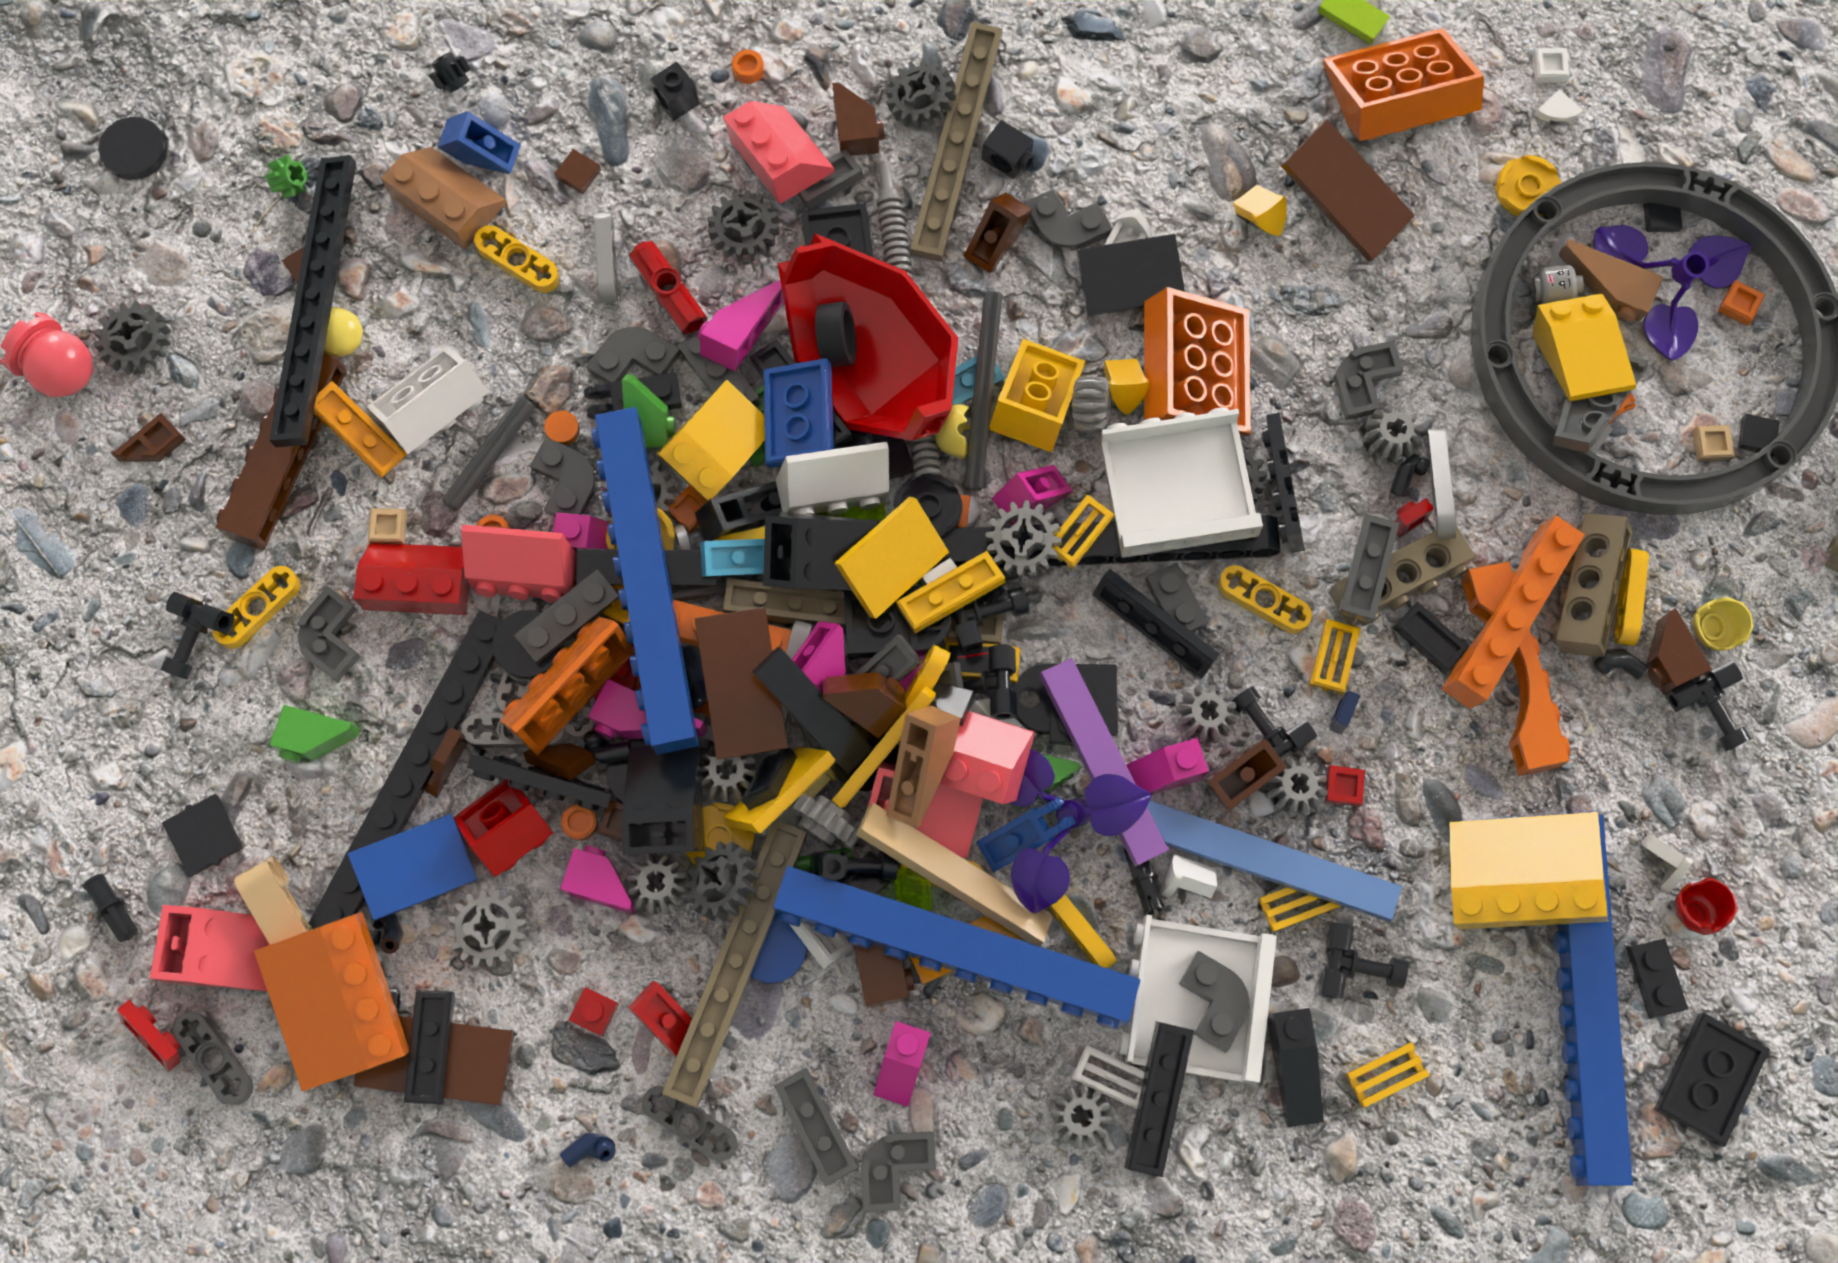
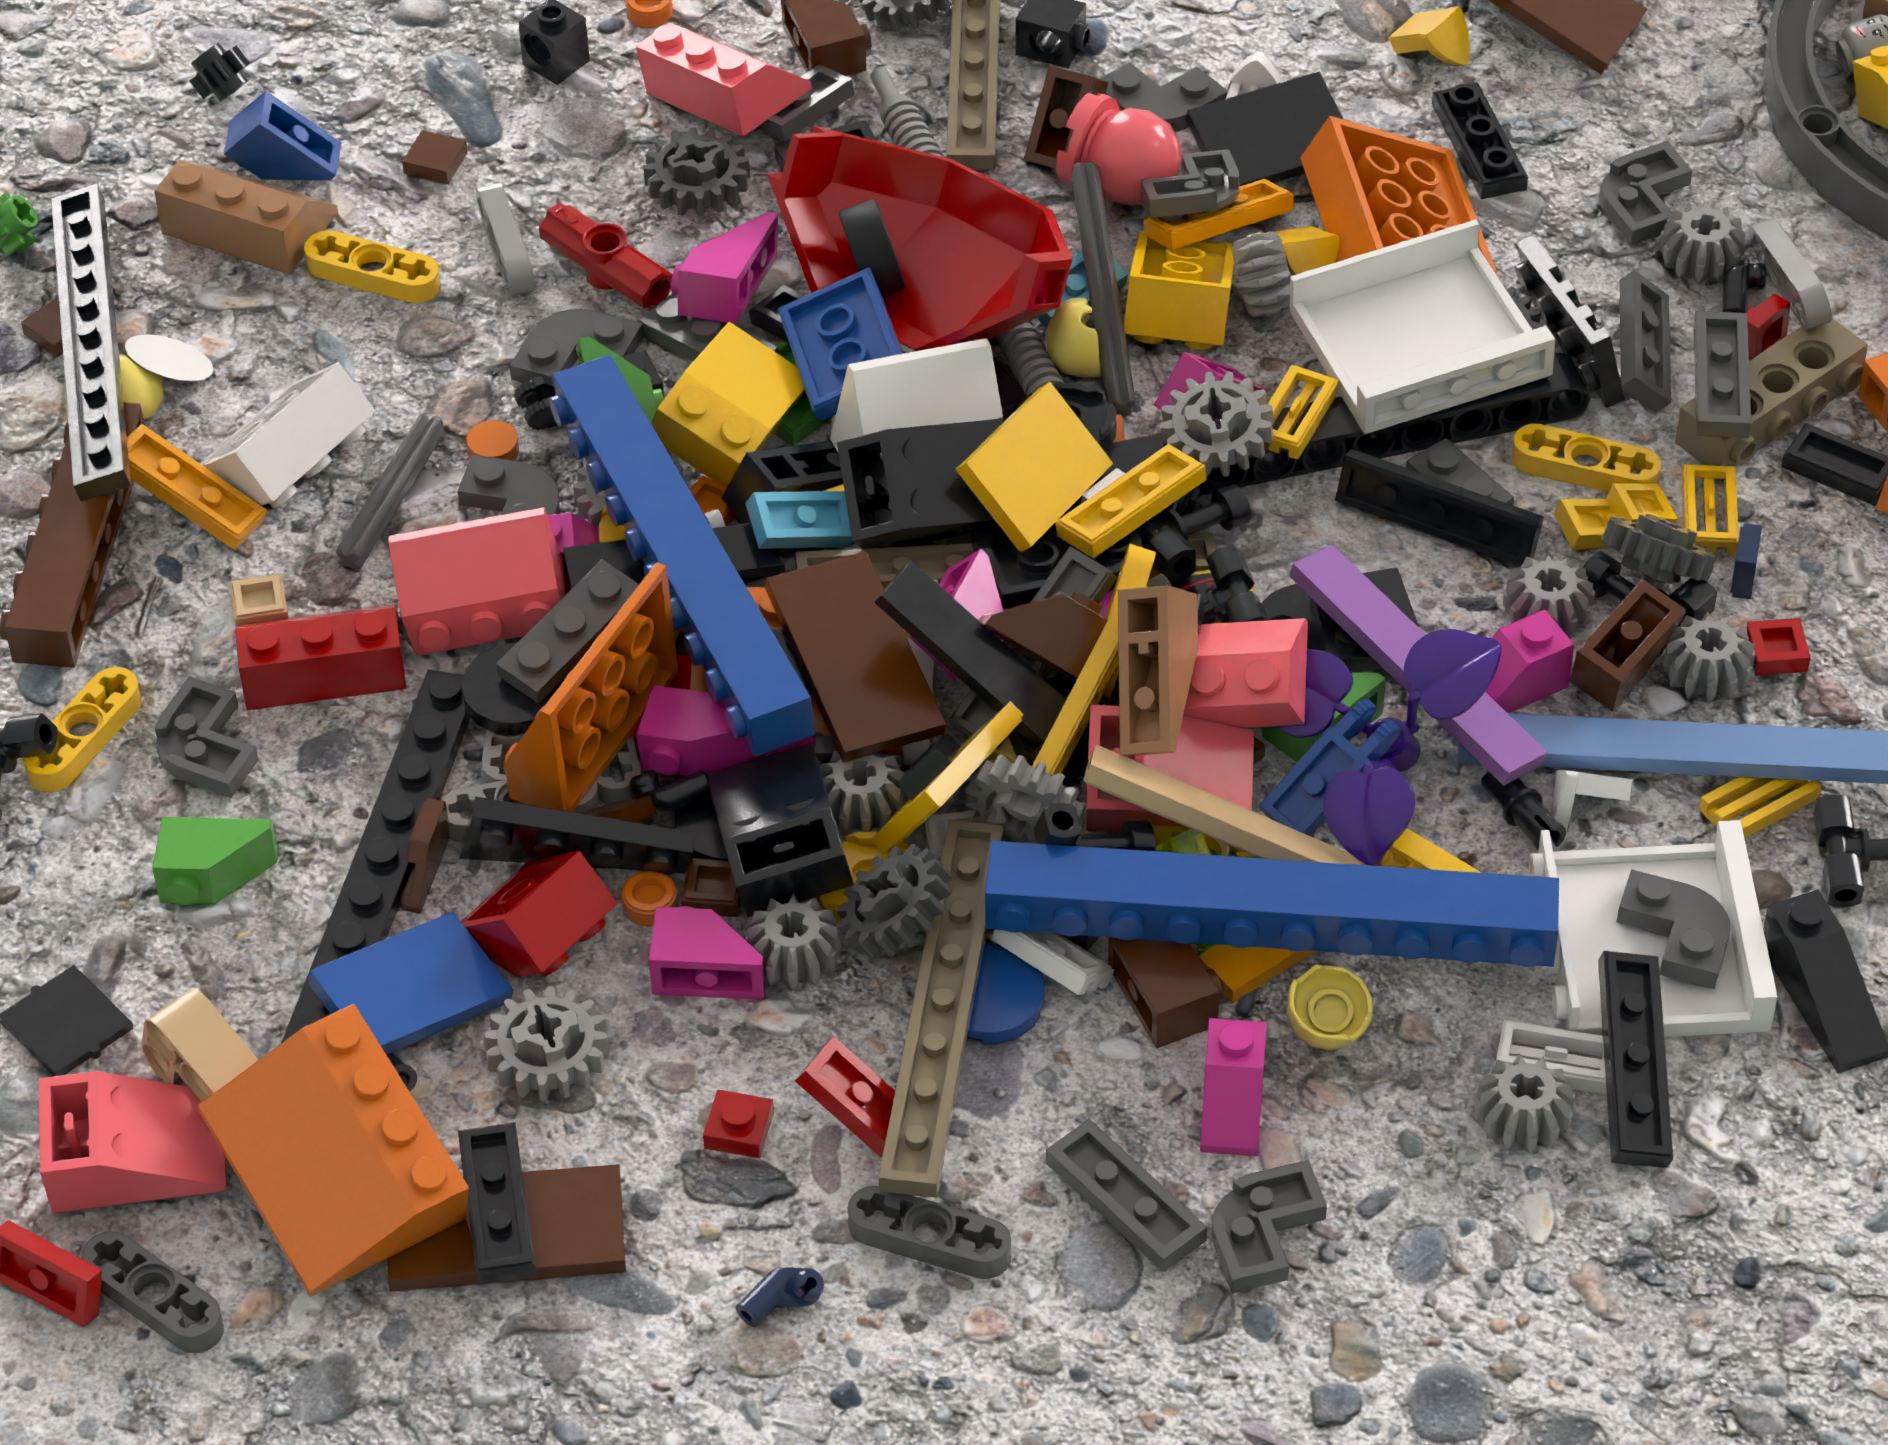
camera: 10 degrees left, 25 degrees down
(368, 313) = (168, 357): none -> white sticker
(977, 1017) = (1329, 1007): none -> light yellow hair
(1026, 278) = (1122, 144): none -> coral tile
(1065, 327) = (1206, 184): none -> dark grey plate
(1077, 339) = (1254, 203): none -> light orange tile
(1270, 322) = (1479, 140): none -> black tile
(1270, 651) = (1586, 519): none -> yellow slope
(1288, 697) = (1659, 548): none -> dark grey gear
(1330, 510) = (1644, 341): none -> dark grey plate

